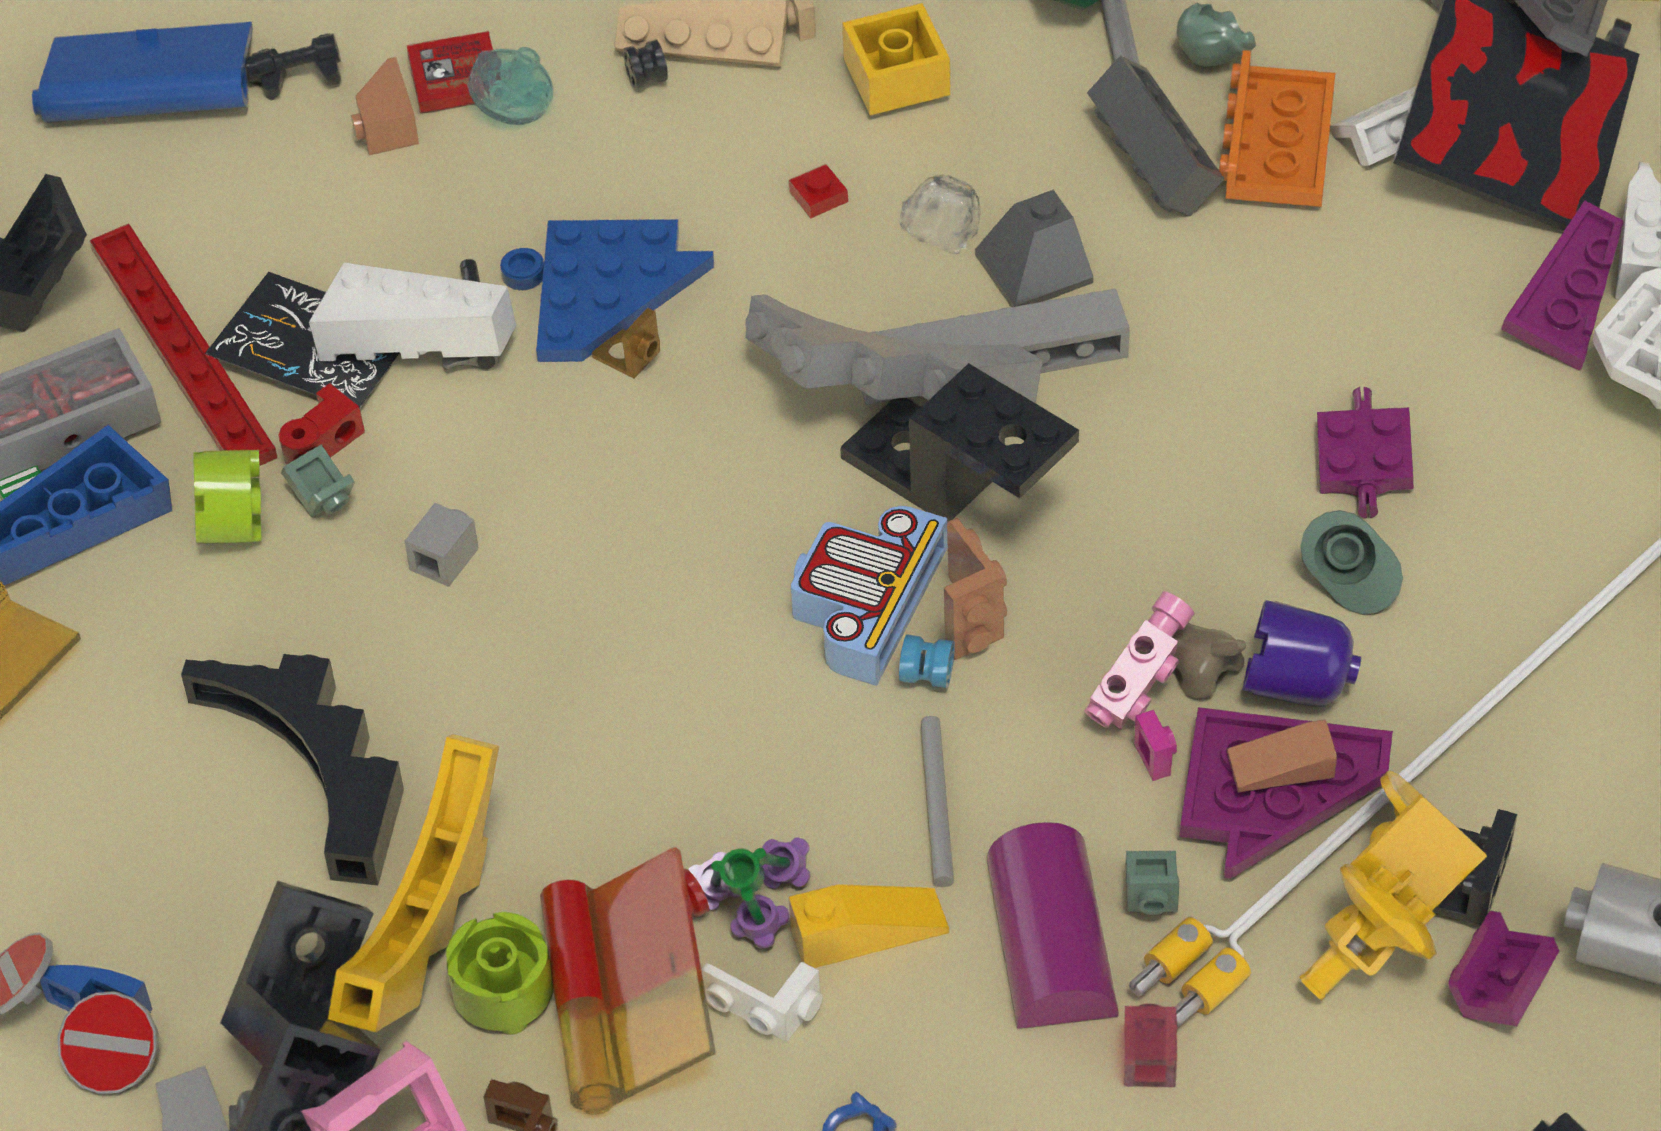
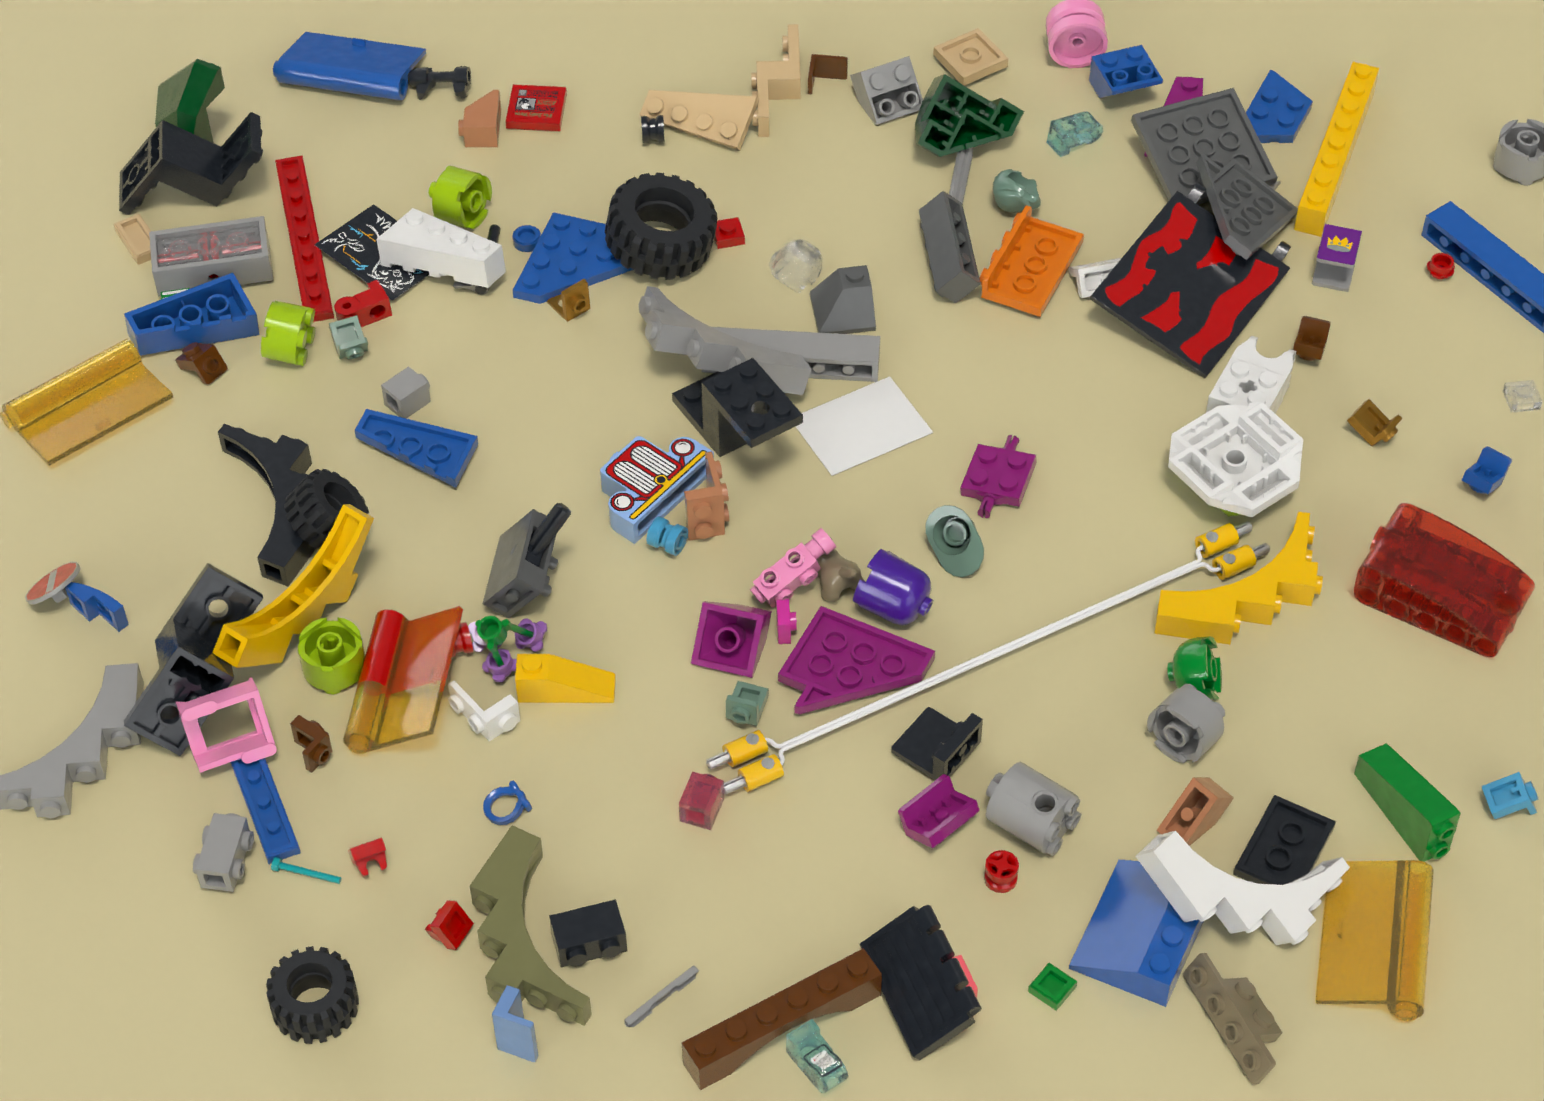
camera: 15 degrees right, 0 degrees up
(106, 569) = (202, 359): none -> reddish brown bracket
(107, 1042) = (91, 636): red piece -> none
(397, 750) = (317, 502): none -> black tyre
(405, 228) = (460, 197): none -> lime brick
(499, 617) = (422, 445): none -> blue wing
(510, 85) = (564, 123): clear light blue tile -> none
(718, 238) = (655, 250): none -> black tyre
(737, 752) = (523, 561): none -> dark grey piece
(896, 58) = (807, 161): yellow brick -> none
(937, 802) = (639, 622): light grey bar -> none
(1050, 926) = (675, 713): magenta brick -> none
(1090, 786) = (730, 637): none -> magenta slope
(1139, 426) = (862, 426): none -> white sticker
(1284, 758) = (857, 649): nougat slope -> none
(1394, 888) = (888, 741): yellow piece -> none
(1566, 291) = (1172, 404): magenta wing -> none
(1639, 1025) = (998, 863): none -> red wheel

